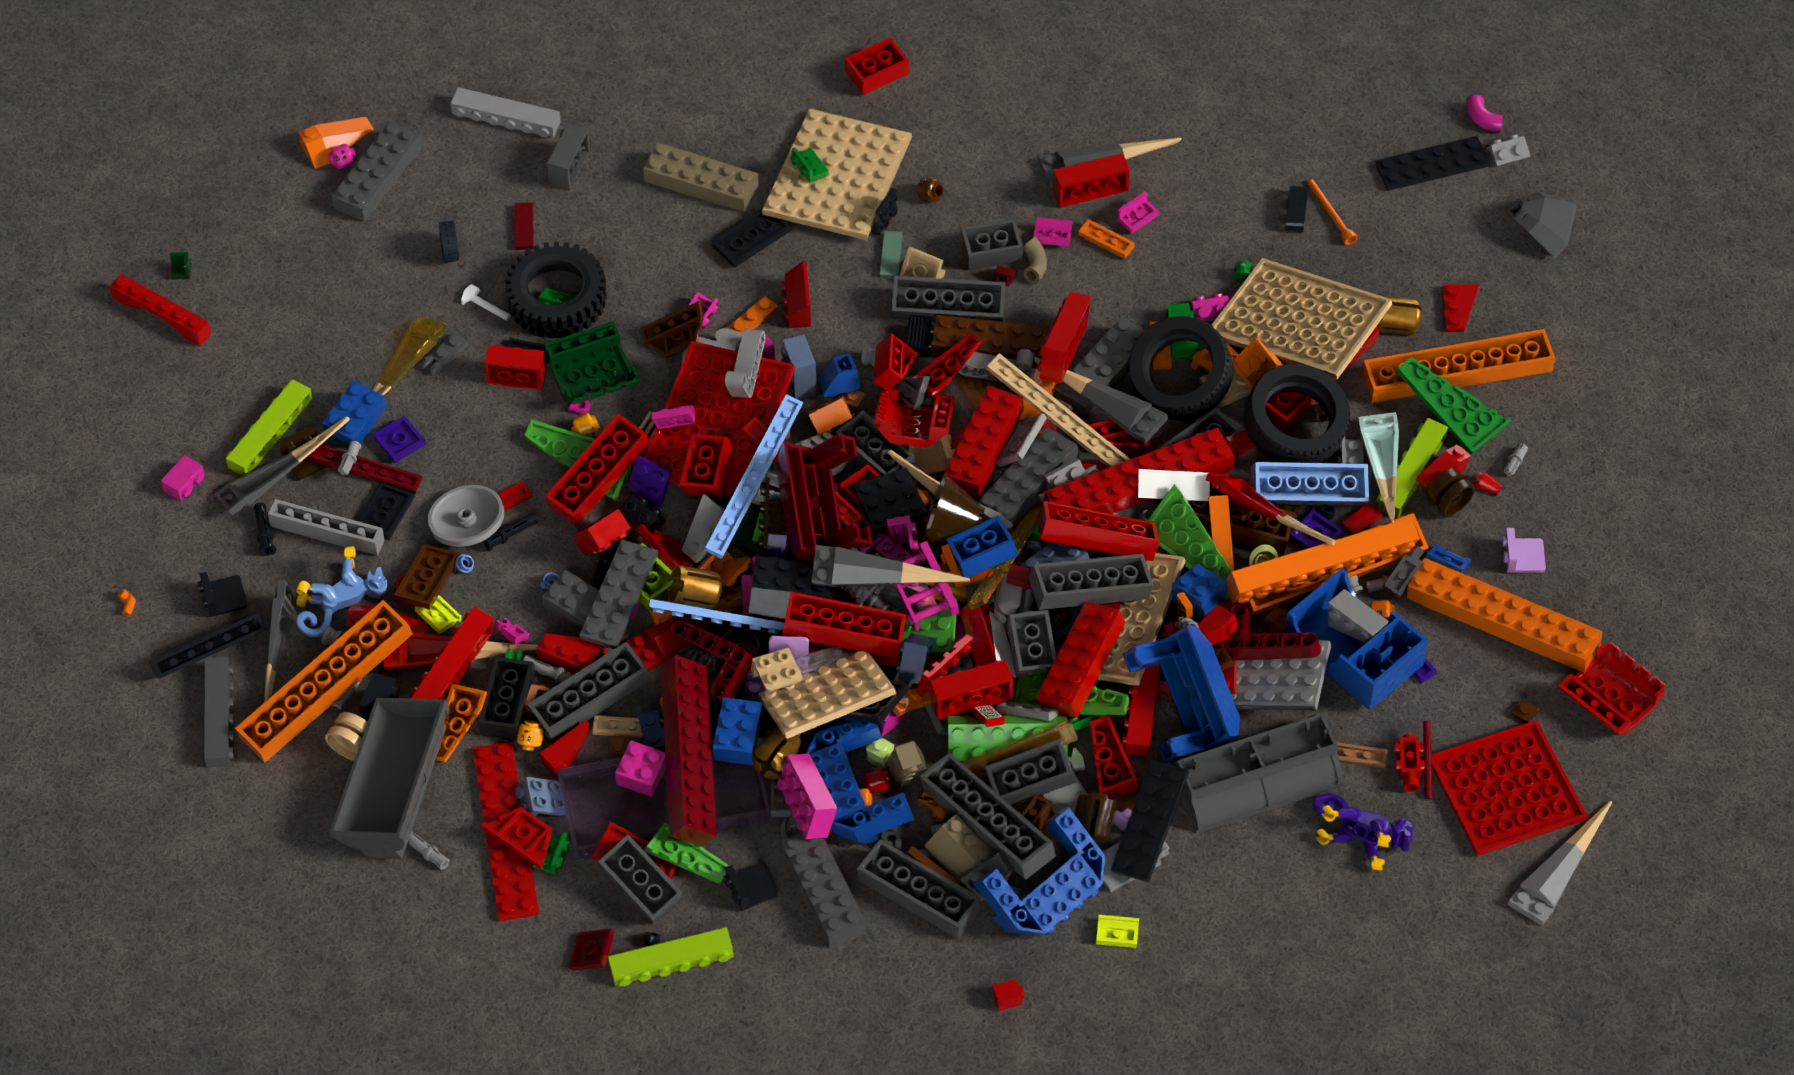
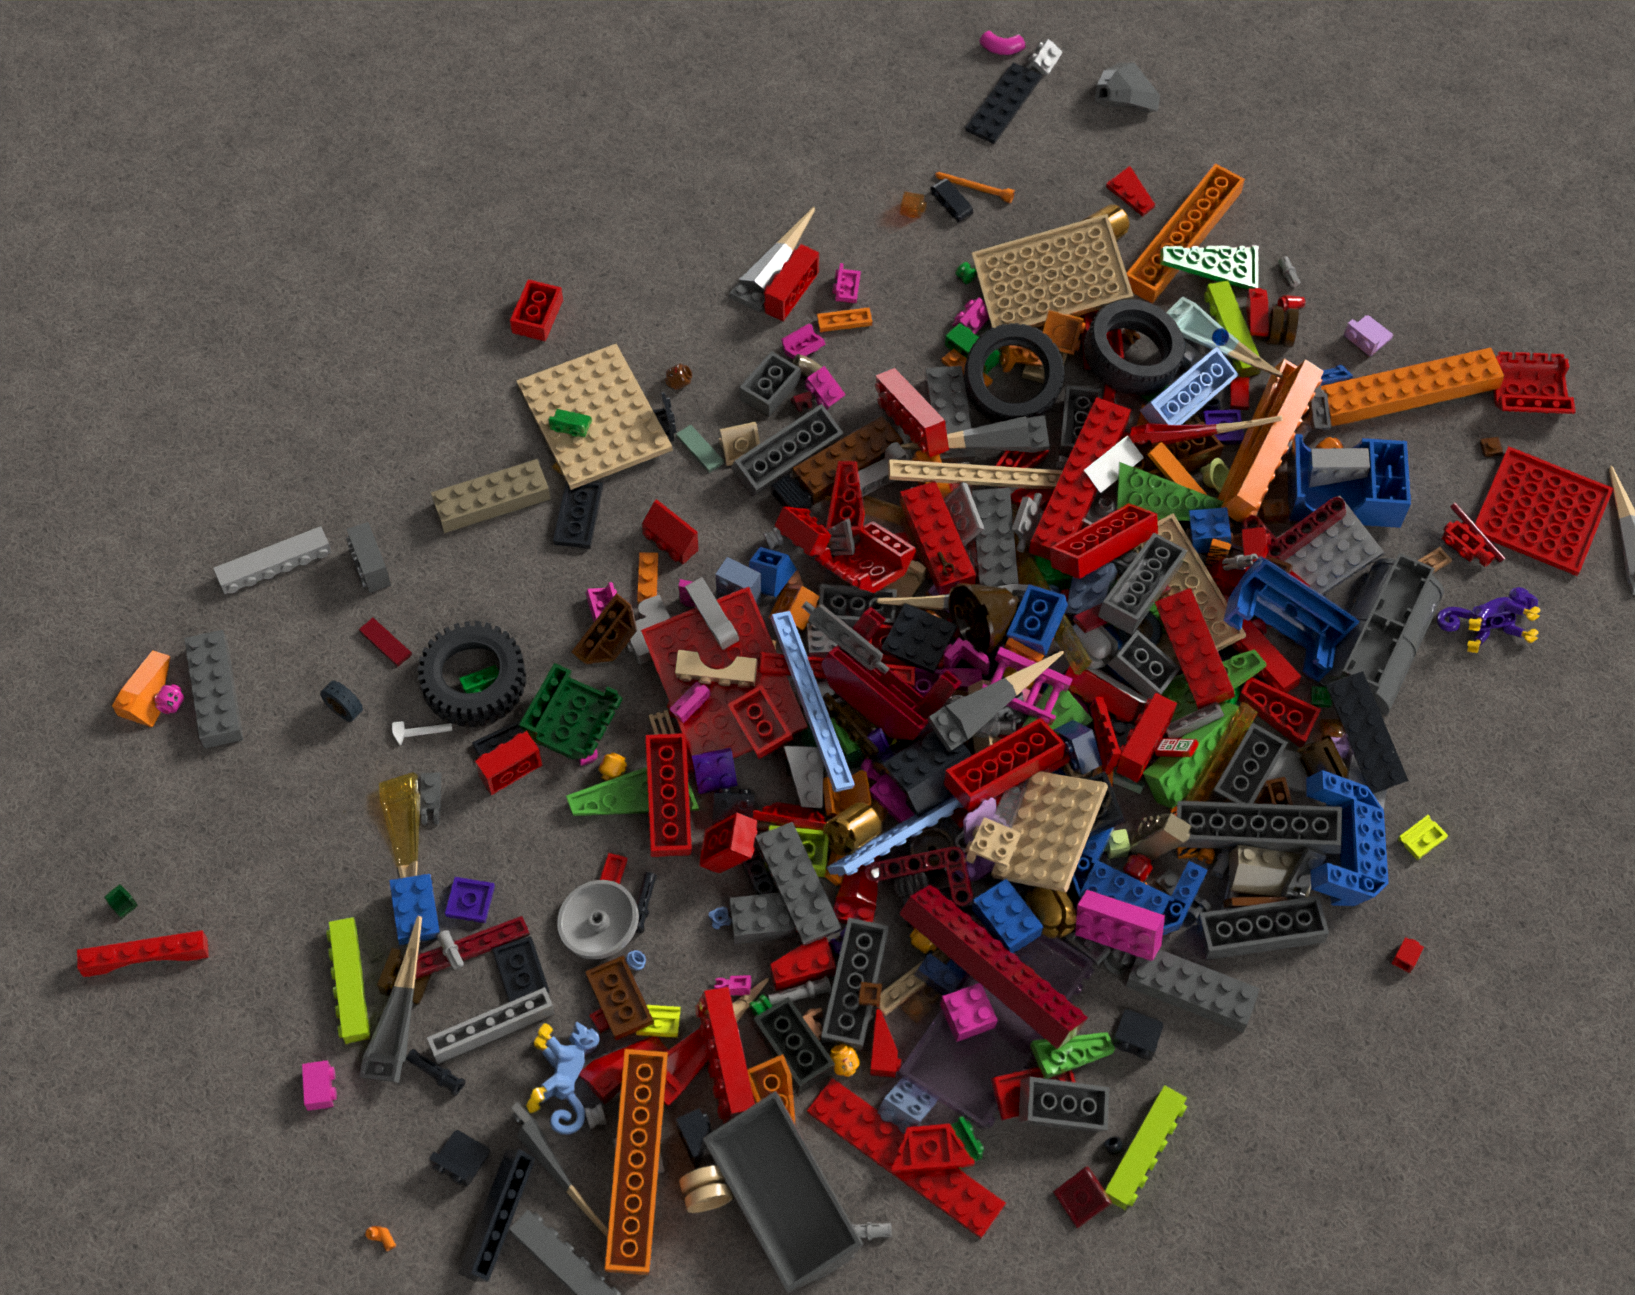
camera: 45 degrees left, 5 degrees up
(585, 700) = (870, 994): none -> reddish brown plate
(727, 419) = (740, 672): none -> tan arch
(813, 444) = (845, 637): none -> dark grey plate
(960, 459) = (944, 563): none -> dark brown hand
(1028, 275) = (824, 388): none -> dark pink bracket
(1259, 190) = (913, 205): none -> clear orange brick
(1382, 460) = (1220, 337): none -> clear blue plate

